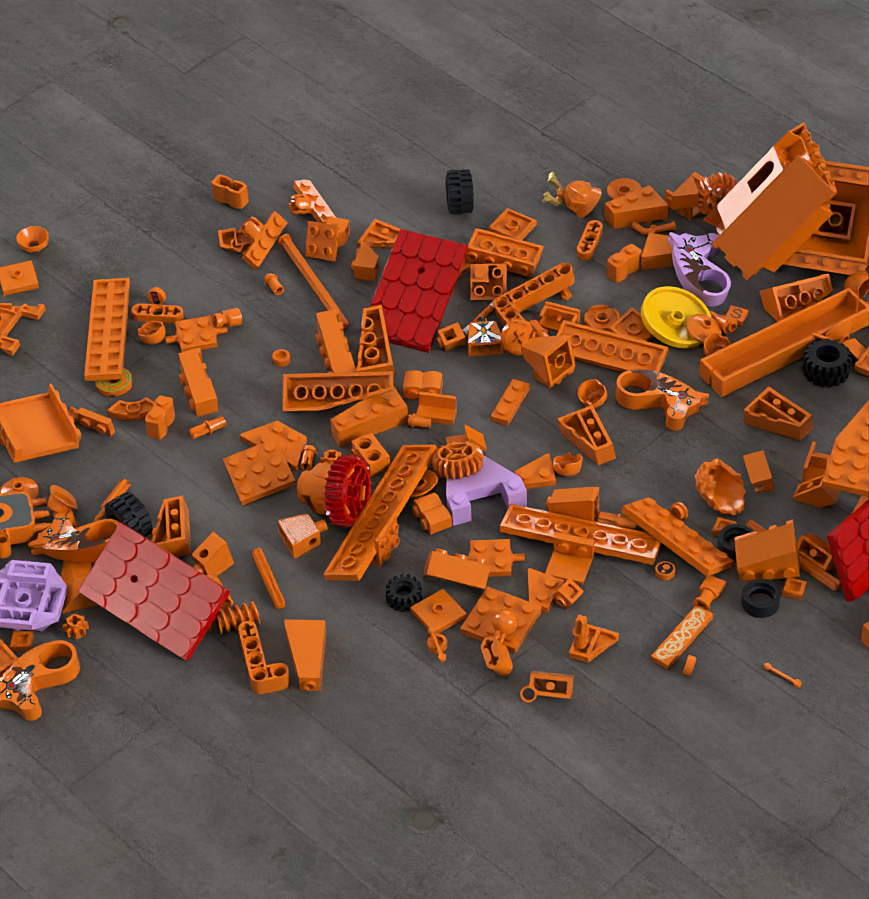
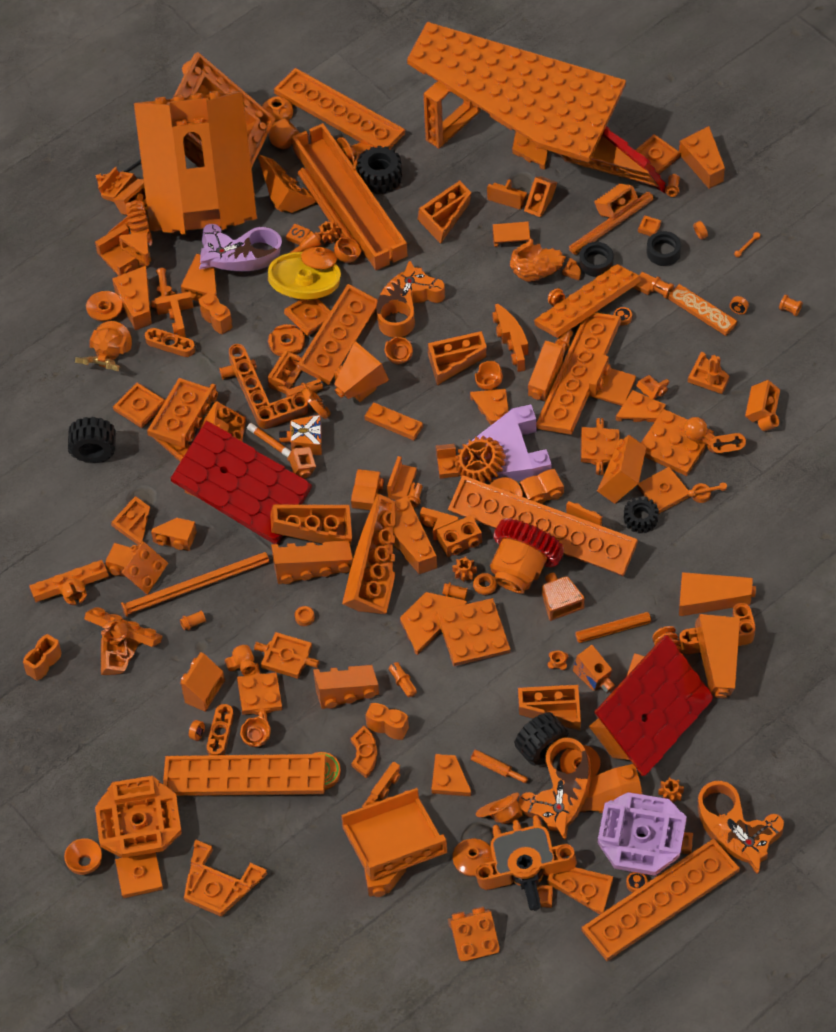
camera: 85 degrees left, 10 degrees up
(61, 263) = (135, 801): none -> orange piece
(104, 467) = (449, 777): none -> orange wing
(201, 289) = (201, 682): none -> orange slope
(218, 644) = (719, 650): none -> orange slope
(230, 536) = (558, 655): none -> orange plate
(235, 347) = (286, 655): none -> orange plate
(388, 436) = (436, 519): none -> orange slope
(620, 238) = (173, 305): none -> orange bracket
(626, 480) = (512, 335): none -> orange slope
(694, 713) = (790, 305): none -> orange bush
(738, 332) = (329, 232): none -> orange gear
(768, 554) = (628, 229): orange wedge -> none
(791, 629) = (700, 230): none -> orange tile
(854, 604) = (672, 188): none -> orange pin

